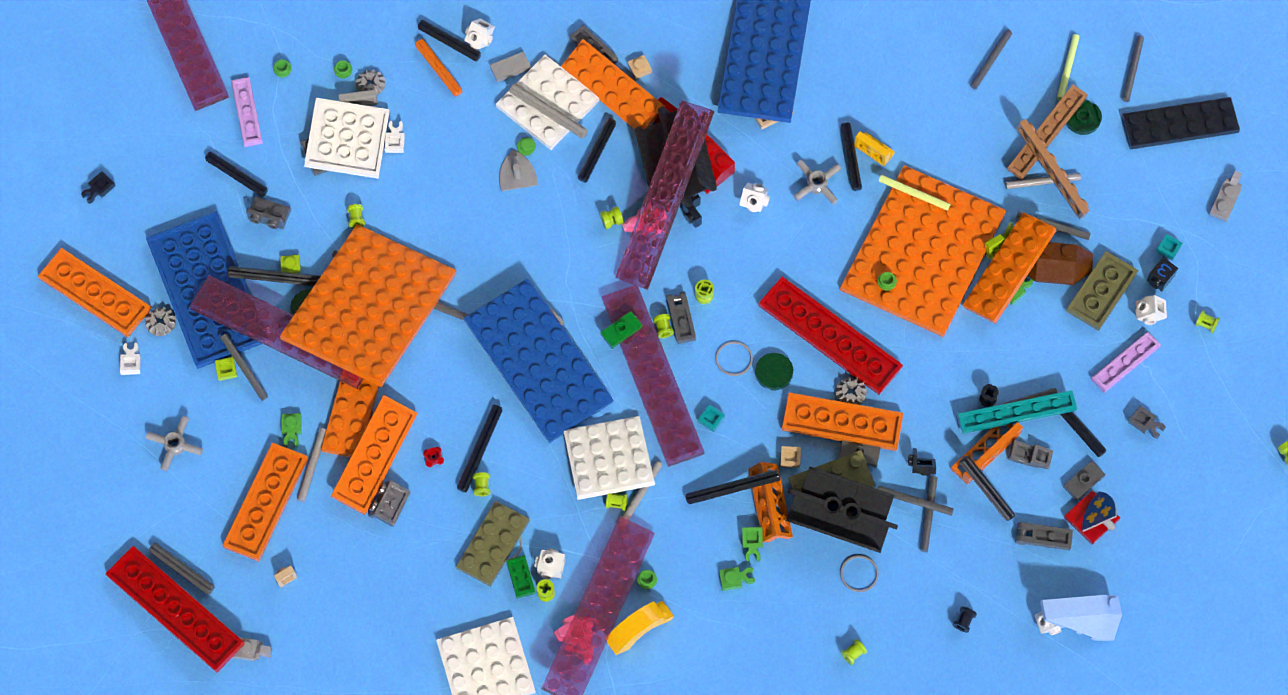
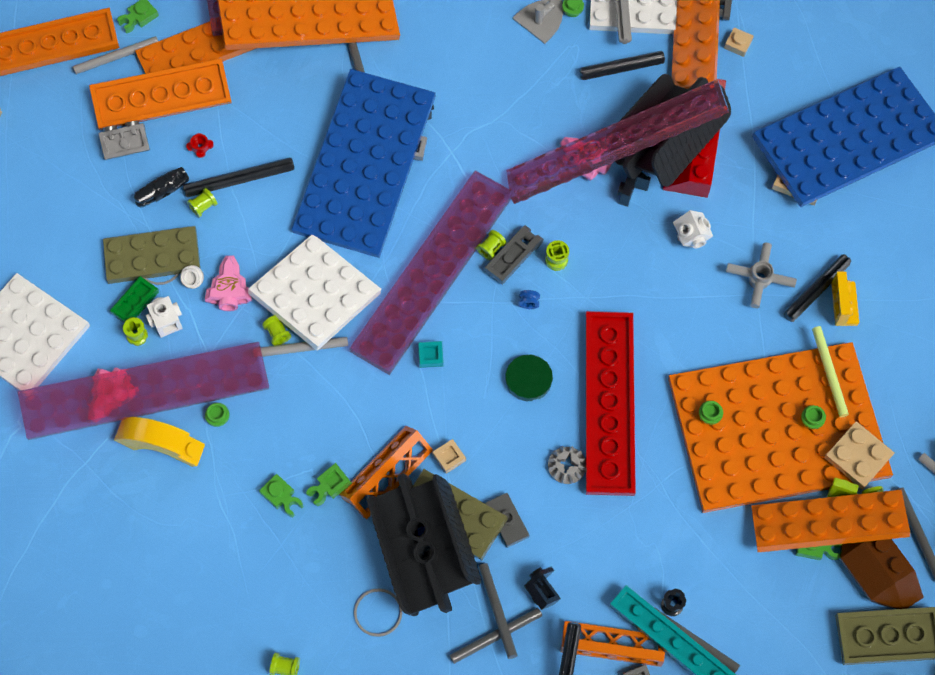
camera: 50 degrees right, 0 degrees up
(447, 502) = (161, 187): none -> black hinge
(532, 528) = (192, 276): none -> white plate
(559, 509) = (228, 287): none -> bright pink rock
(611, 217) = (563, 123): lime wheel -> none
(621, 329) = (453, 209): green plate -> none
(721, 331) = (529, 299): none -> blue bush
(732, 487) = (371, 423): black axle -> none
(734, 342) = (513, 313): light grey piece -> none
(842, 421) = (527, 479): orange plate -> none
(936, 225) = (813, 417): none -> bright green plate
(981, 218) = (859, 455): none -> tan plate

